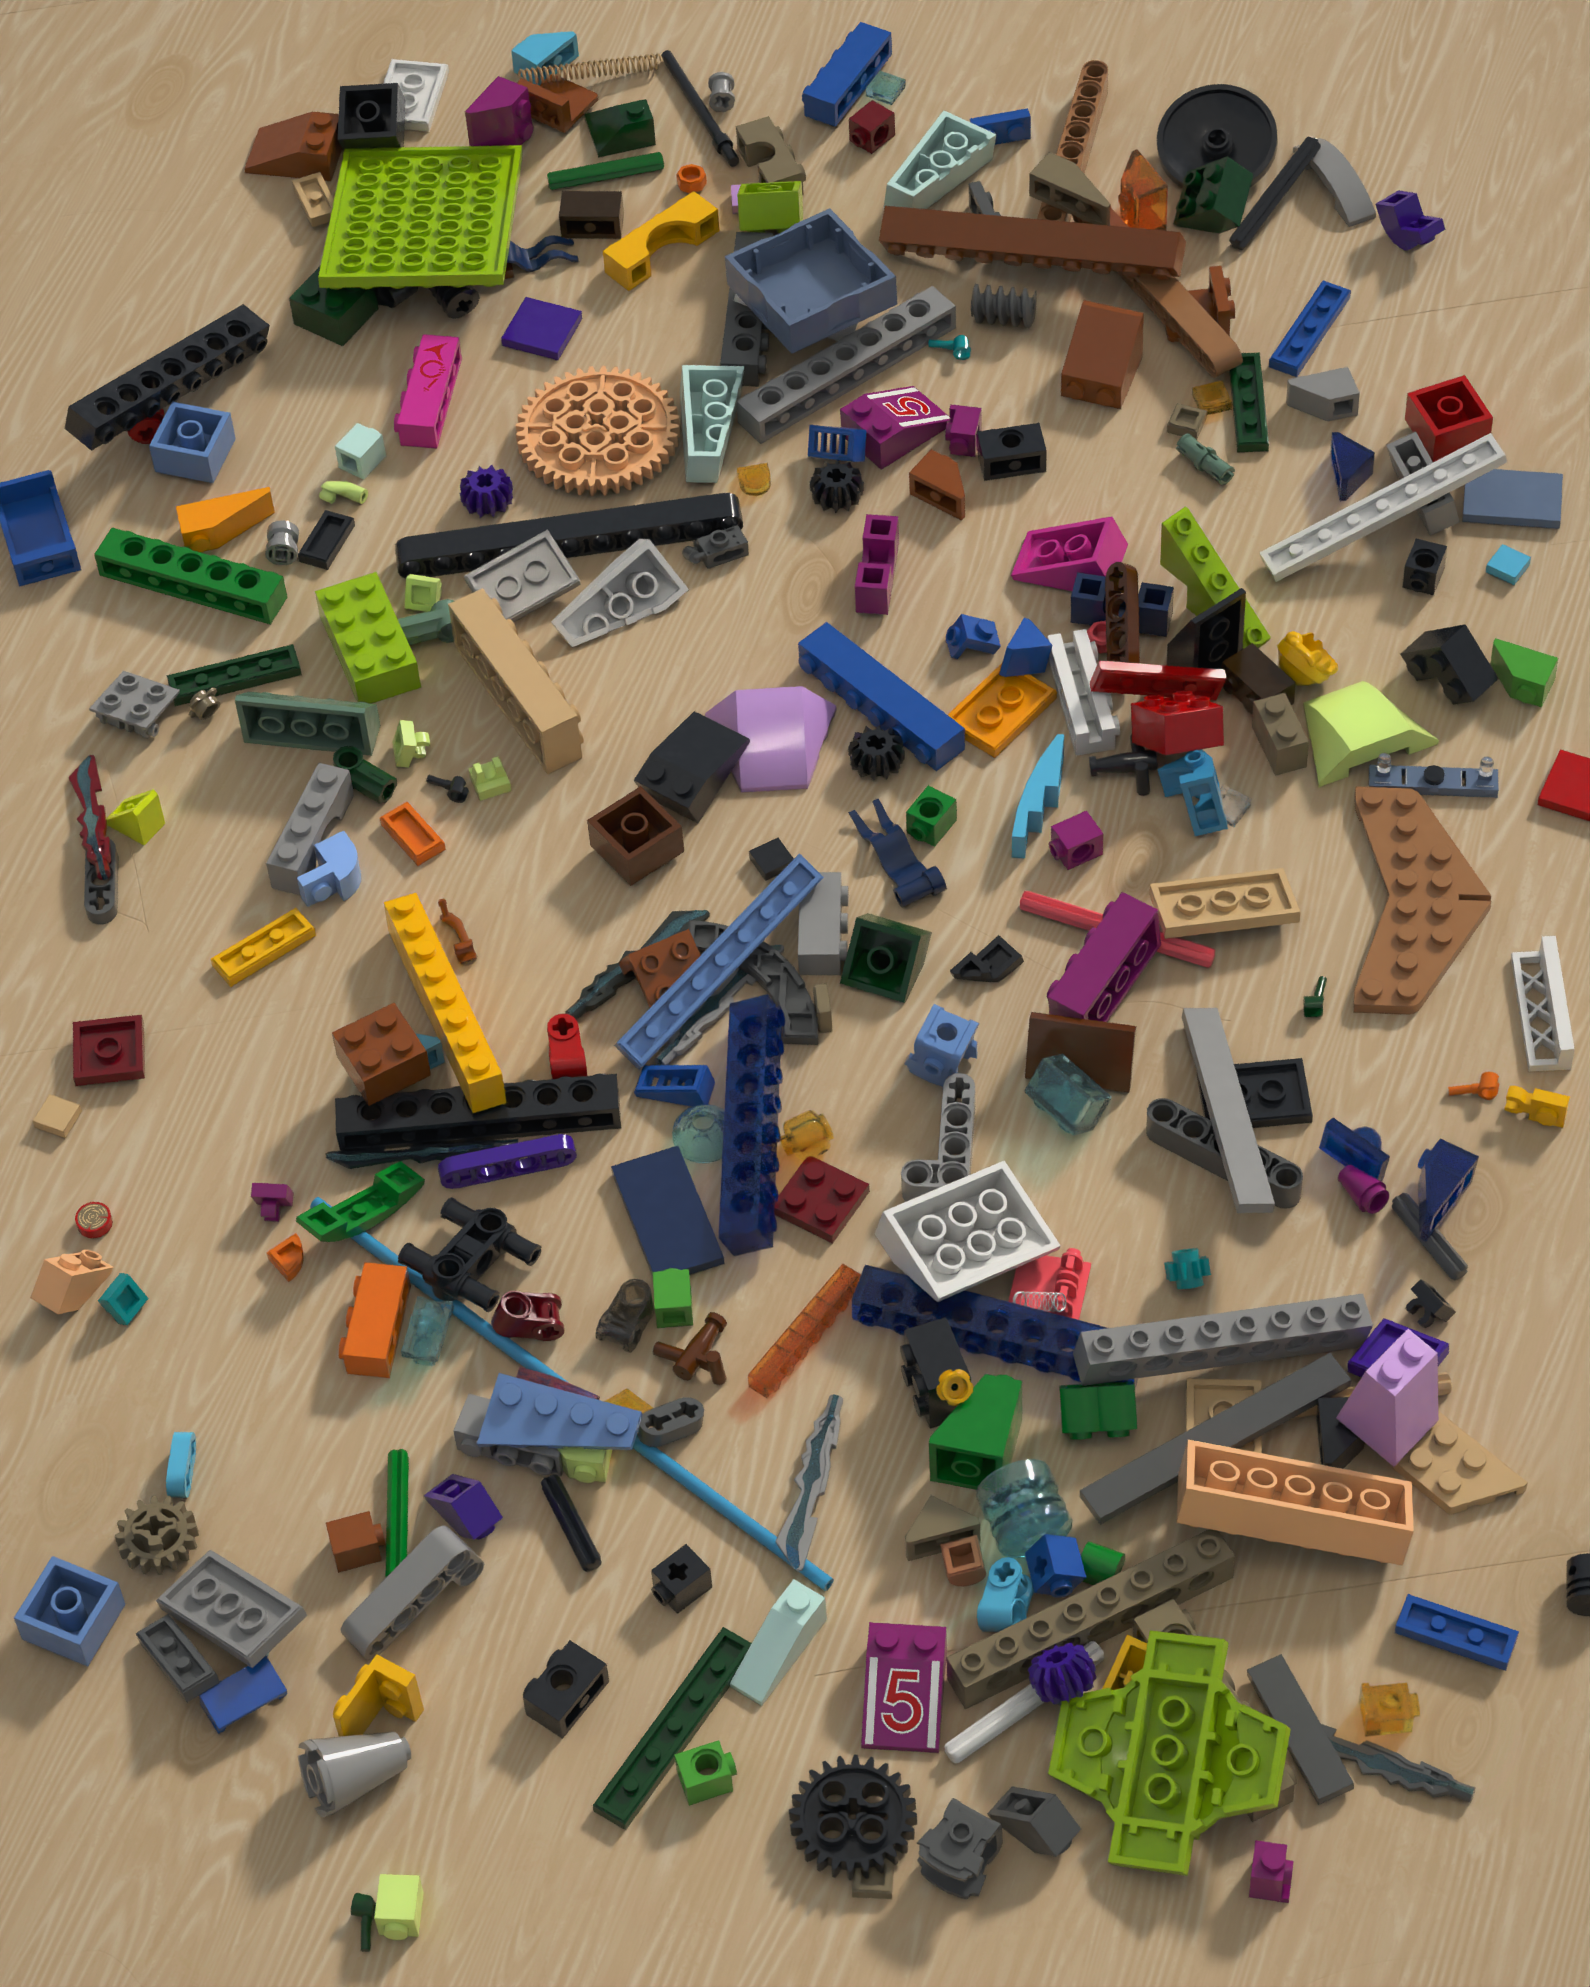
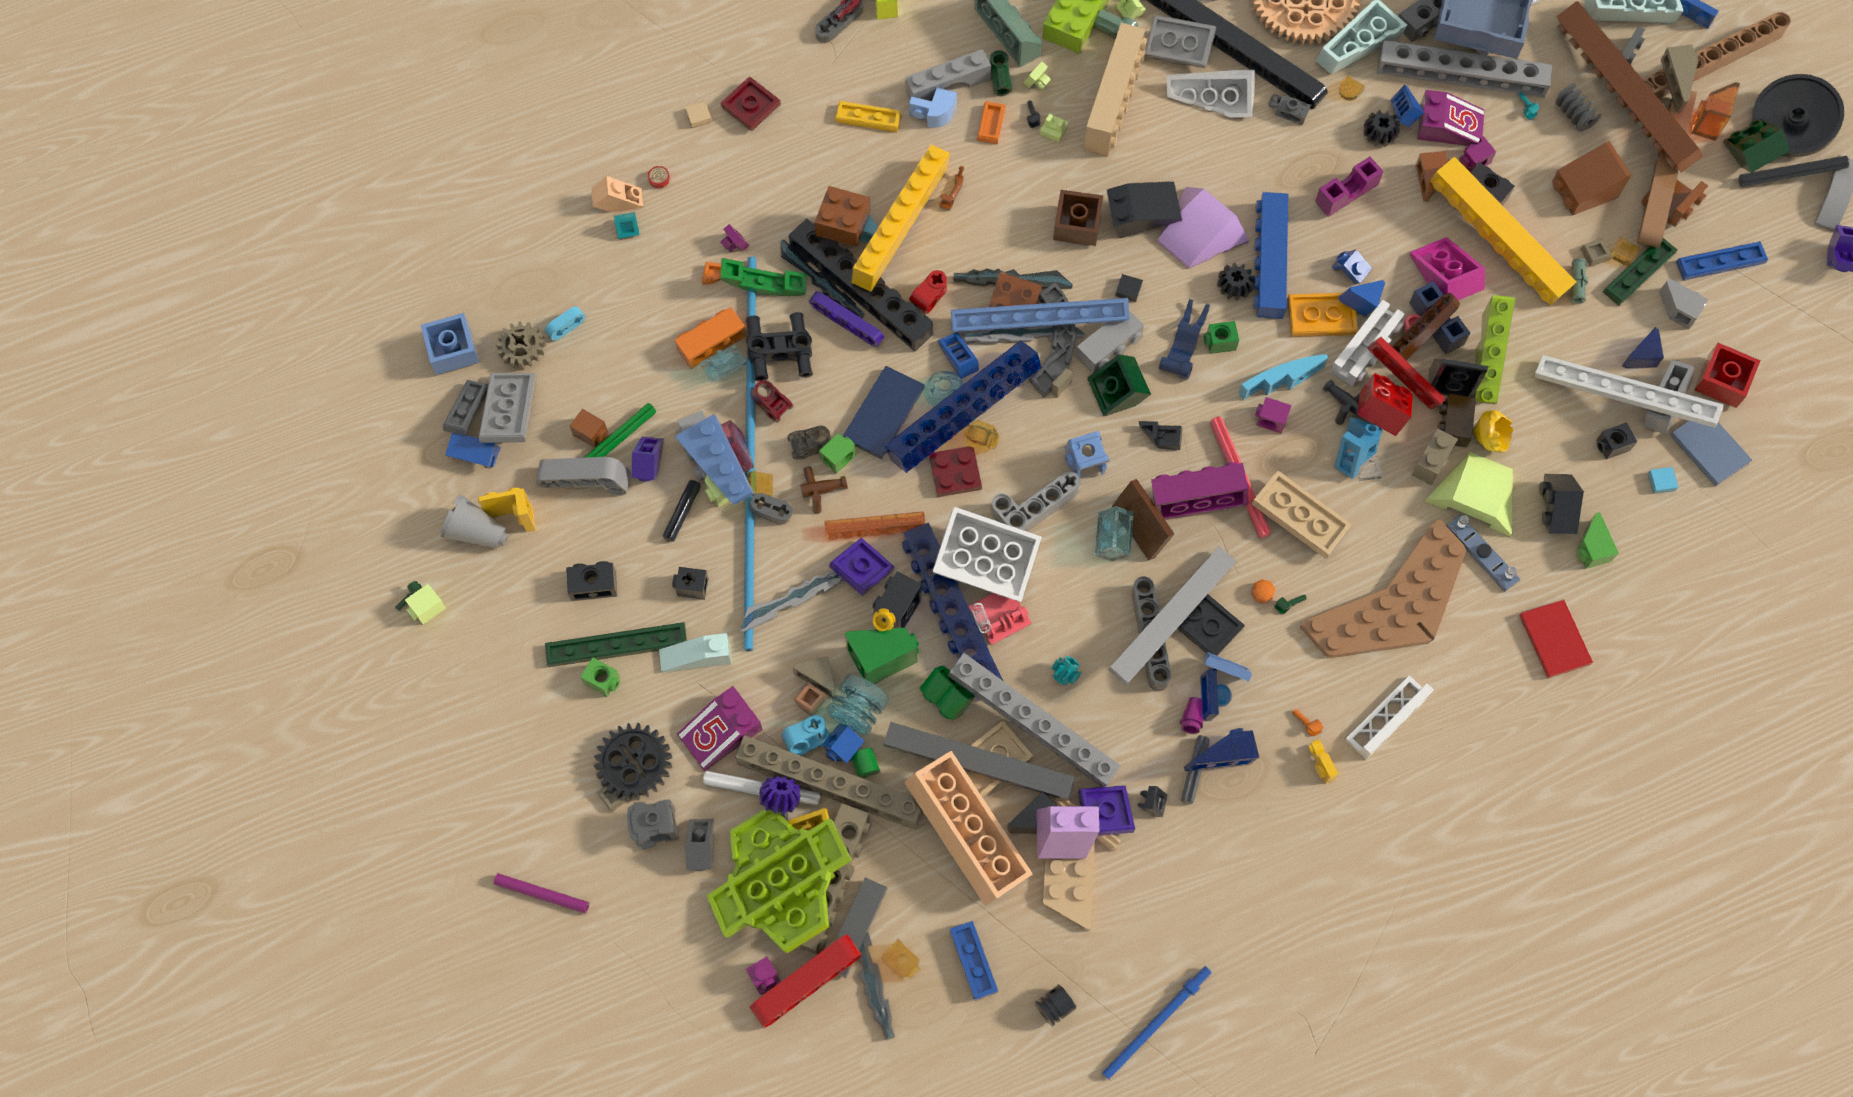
camera: 45 degrees right, 15 degrees up
(845, 1381) = (861, 566): none -> dark purple tile
(1081, 473) = (1502, 231): none -> yellow brick
(1277, 1011) = (1263, 591): none -> orange tile
(1322, 1828) = (805, 981): none -> red beam
(1338, 1108) = (1227, 666): none -> medium blue tile

